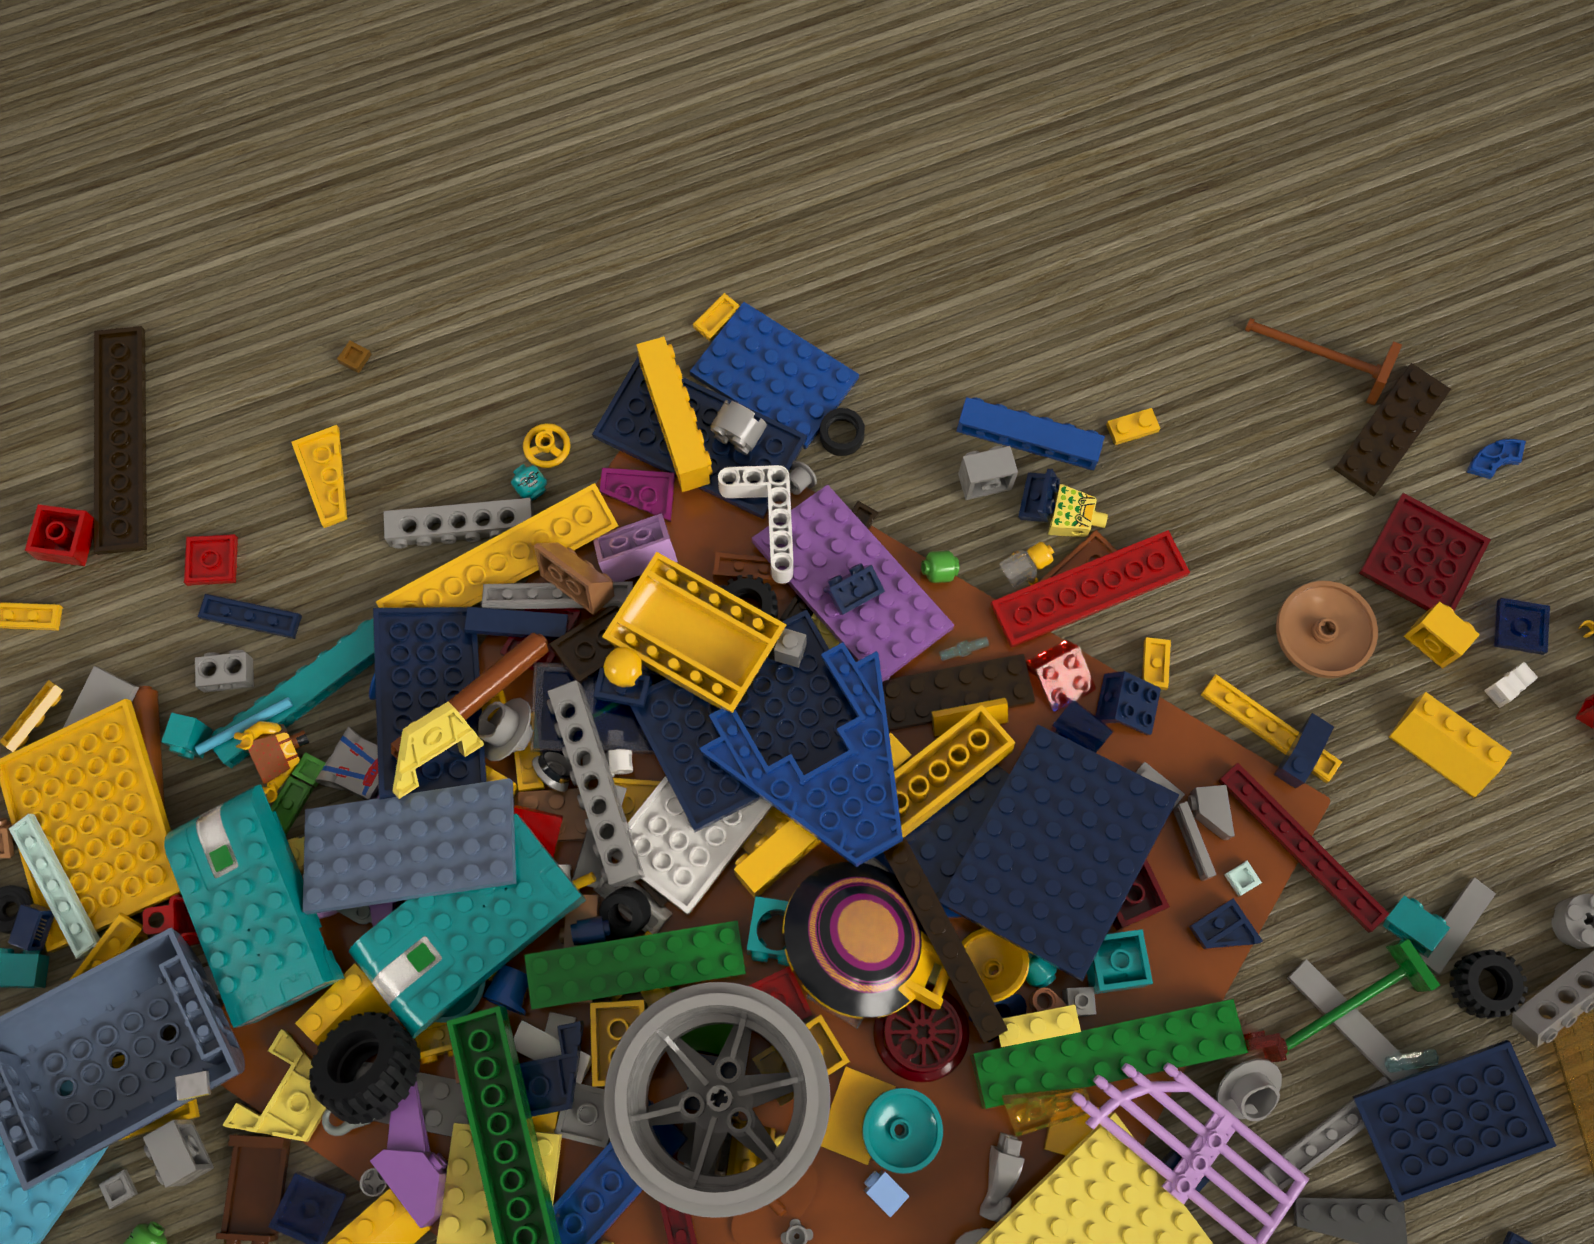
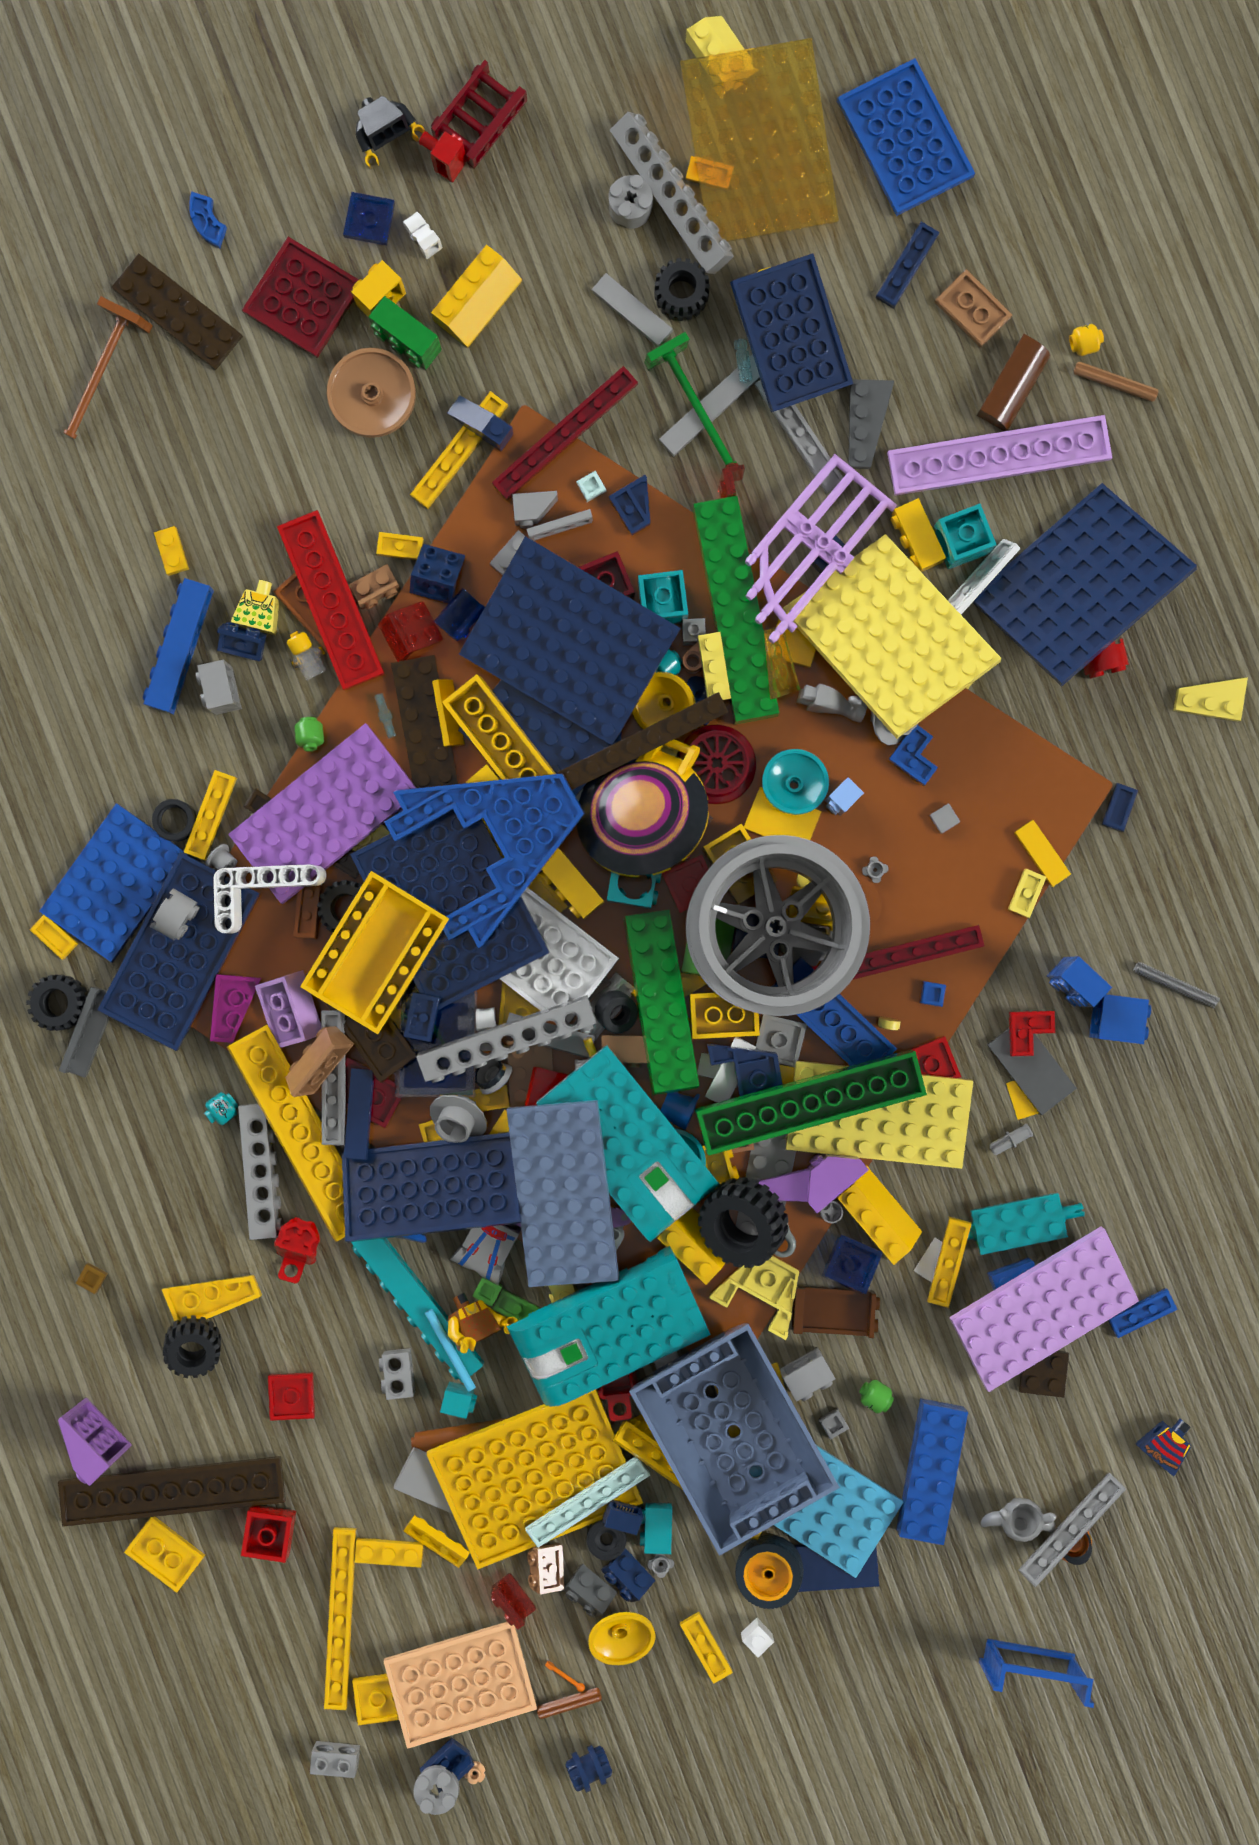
camera: 90 degrees left, 15 degrees up
(26, 665) = (388, 1552): none -> yellow plate
(54, 433) = (164, 1553): none -> yellow tile
(177, 350) = (91, 1441): none -> medium lavender slope
(192, 1085) = (758, 1359): flat silver piece -> none
(249, 616) = (345, 1356): dark blue tile -> none
(257, 448) = (190, 1362): none -> black tyre
(376, 564) = (297, 1245): none -> red piece
(429, 738) = (474, 1180): light yellow wing -> none
(494, 678) = (439, 1156): dark orange brick -> none
(544, 434) = (190, 1109): yellow piece -> none
(590, 931) = (633, 1040): dark blue brick -> none
(603, 345) = (86, 1035): none -> dark grey fence
(623, 667) = (406, 1015): yellow hair -> none
(646, 302) = (40, 997): none -> black tyre
(674, 413) = (160, 974): yellow brick -> none
(790, 647) = (388, 868): light grey brick -> none
(849, 468) = (210, 815): none -> yellow plate
(855, 588) = (332, 811): dark blue bracket -> none
(1108, 637) = (375, 587): none -> medium nougat bracket
(1250, 1089) = (765, 495): light grey helmet -> none
(1397, 663) = (404, 333): none -> green brick
(1414, 923) = (633, 343): teal brick -> none

